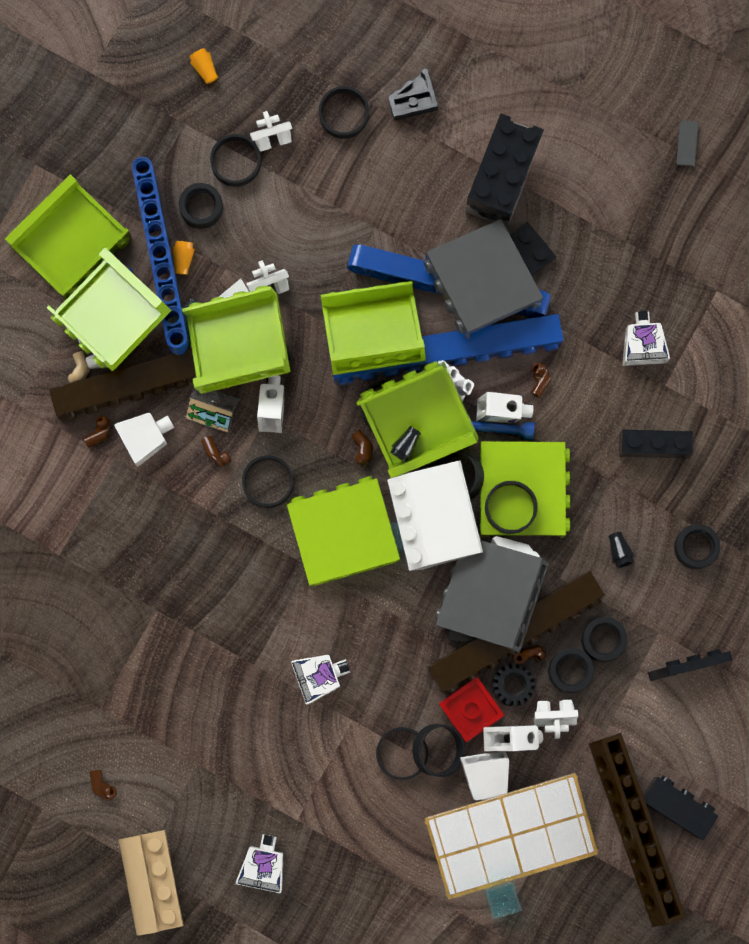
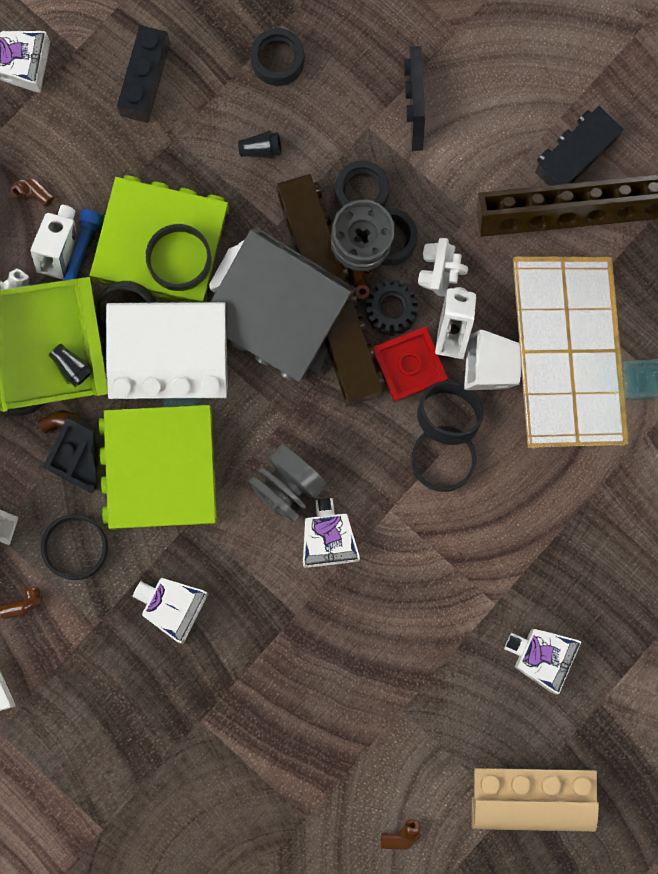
camera: 75 degrees left, 0 degrees up
(238, 567) = (171, 606): none -> white torso
(338, 464) = (75, 454): none -> black wing
(352, 633) = (287, 483): none -> dark grey wheel
(575, 647) = (367, 220): none -> dark grey wheel

